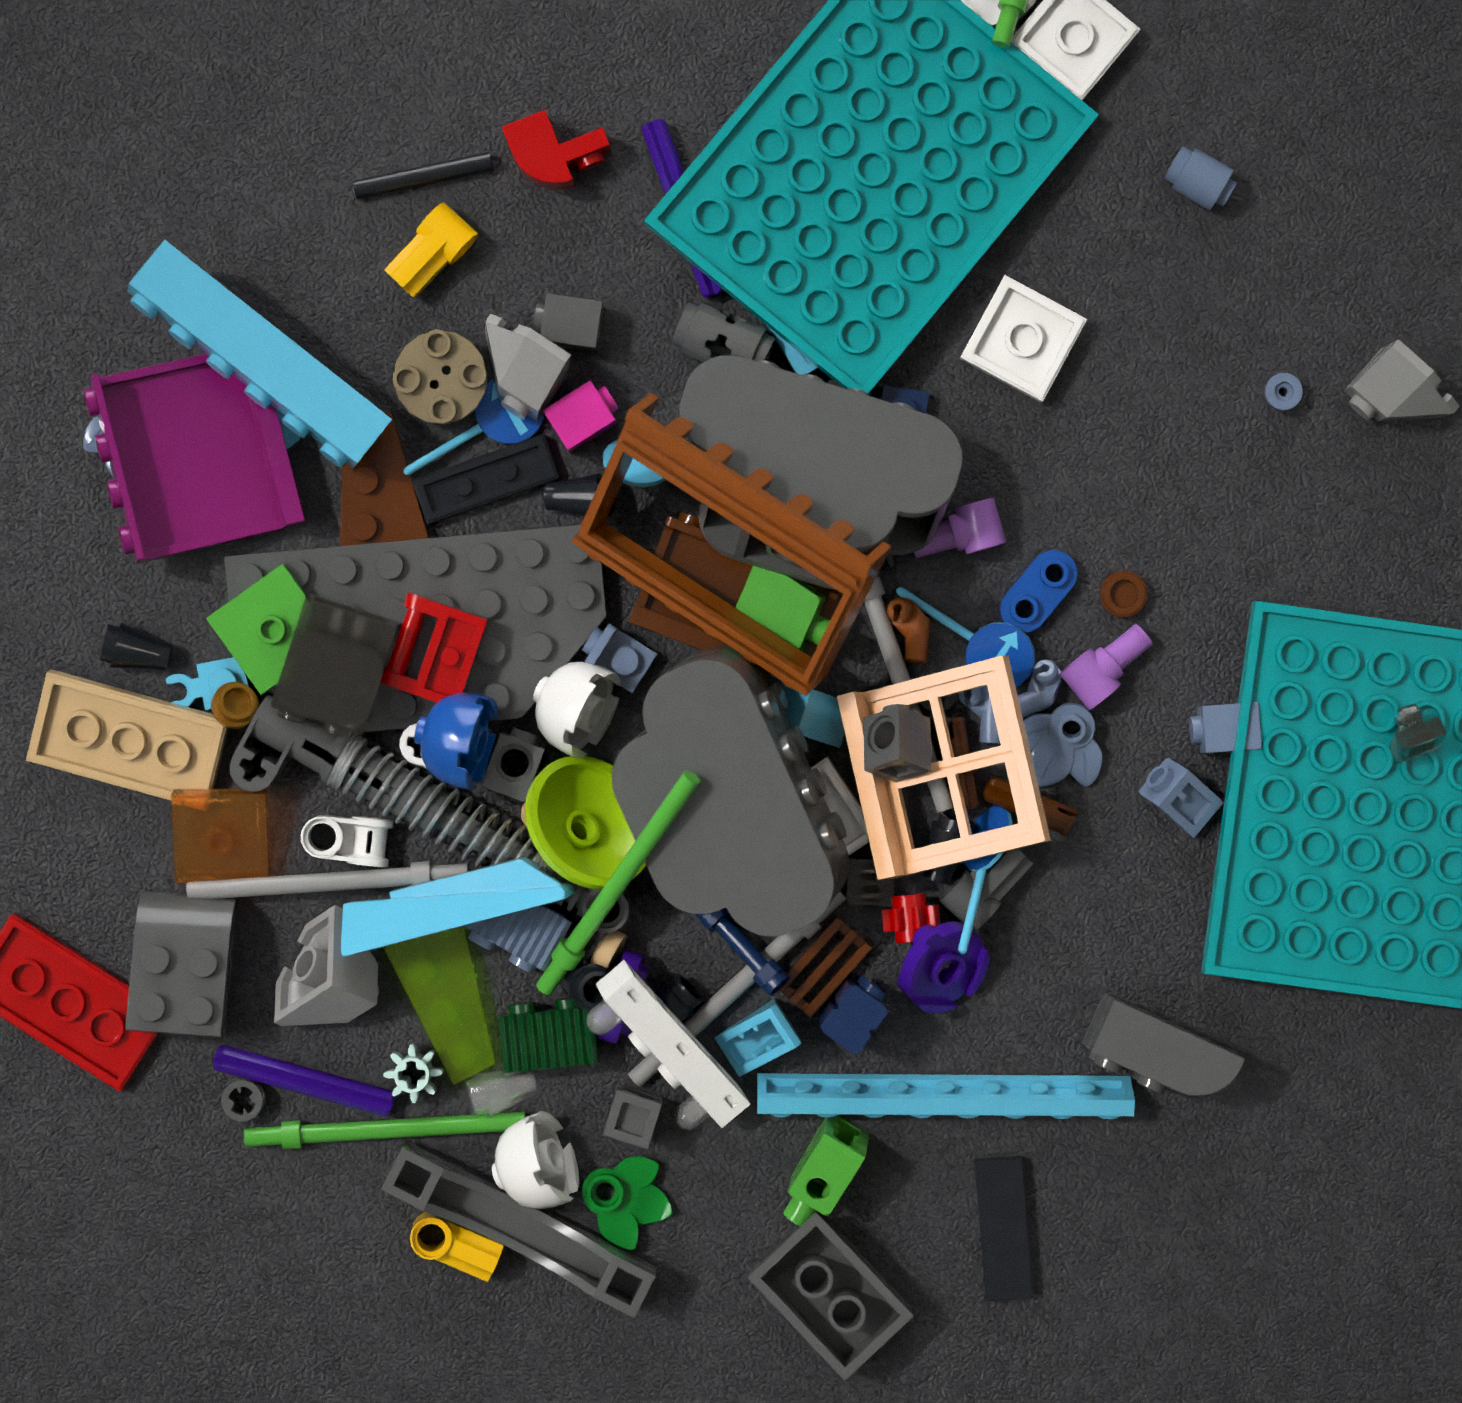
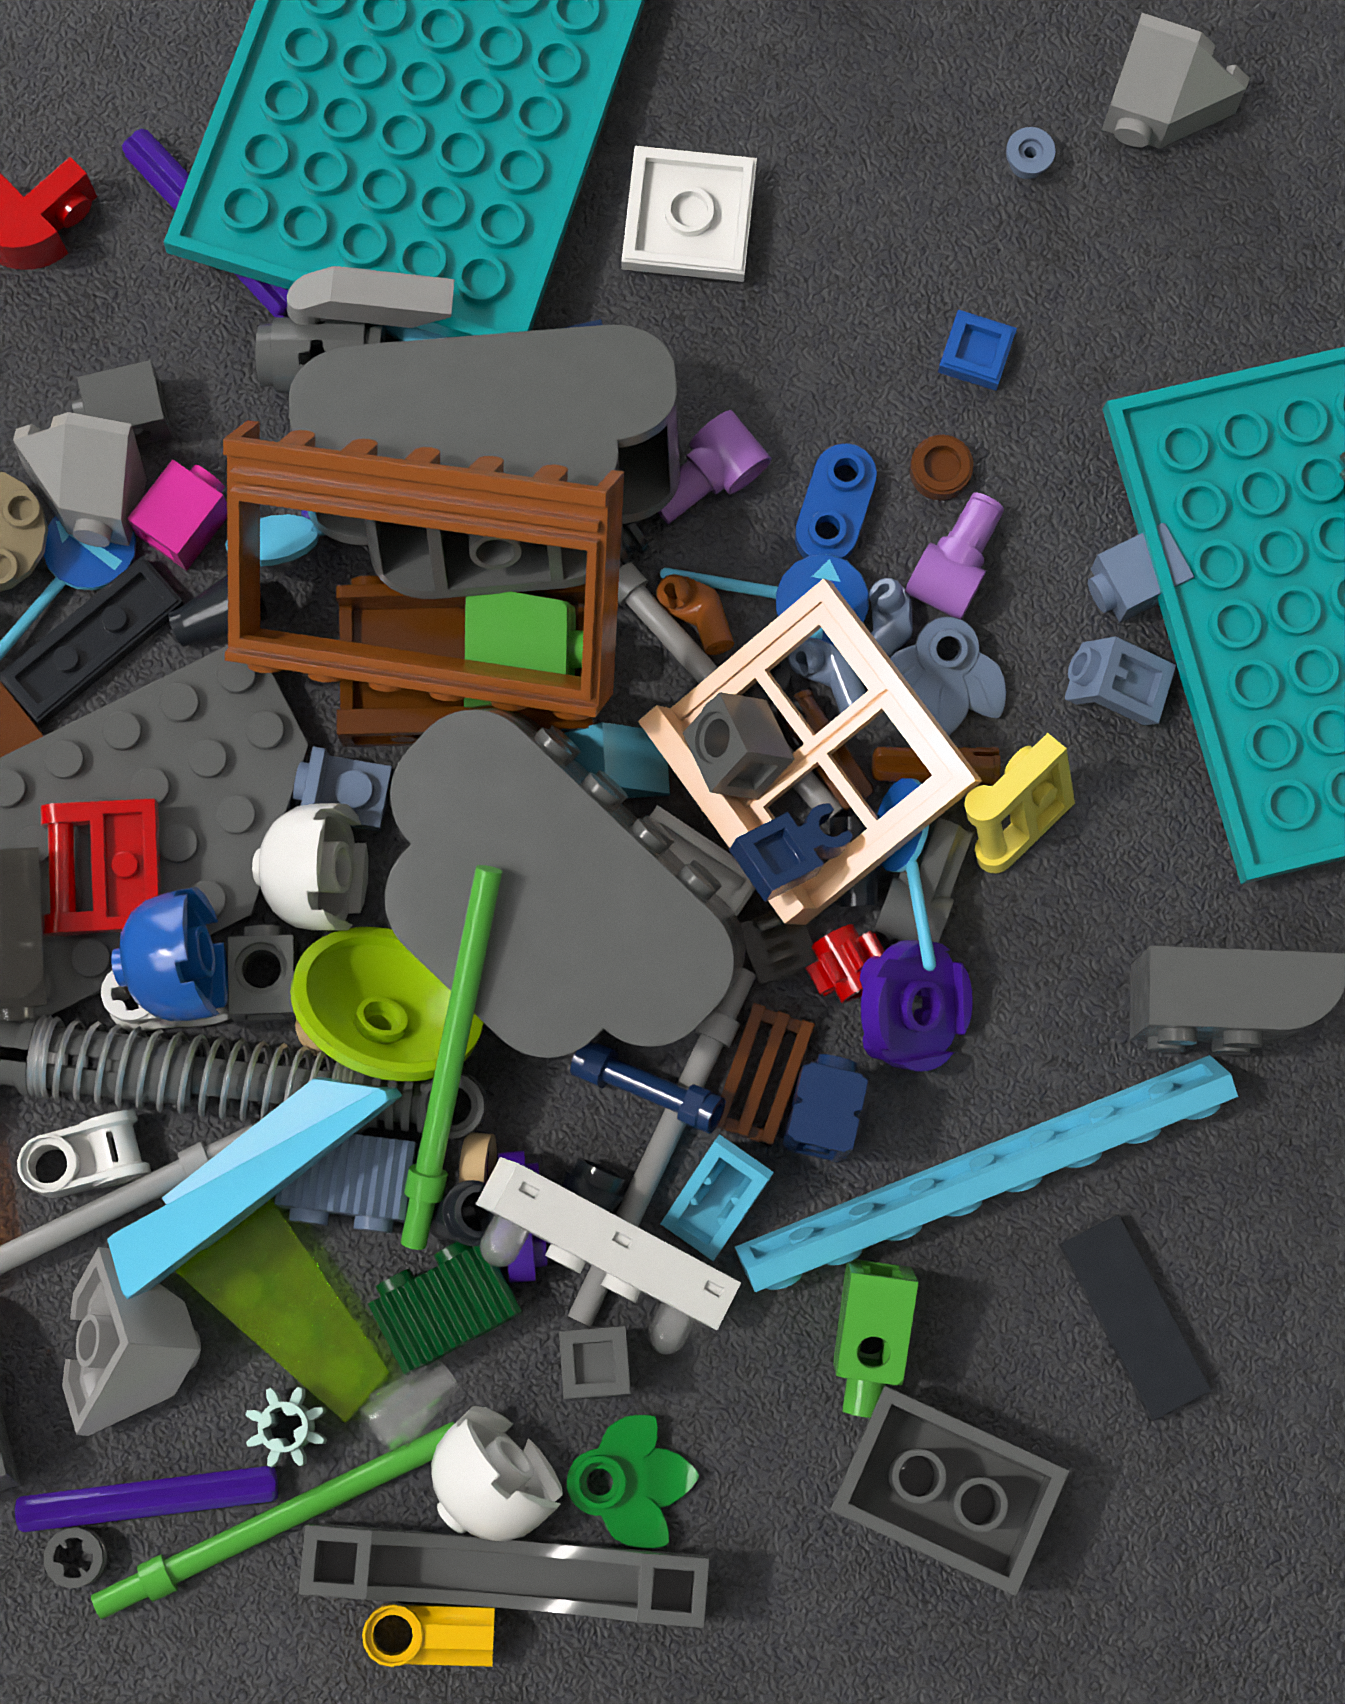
camera: 25 degrees left, 10 degrees down
(772, 324) = (369, 297): none -> light grey piece
(896, 836) = (785, 855): none -> dark blue plate
(1082, 858) = (1033, 792): none -> light yellow plate
(1184, 519) = (977, 350): none -> blue tile

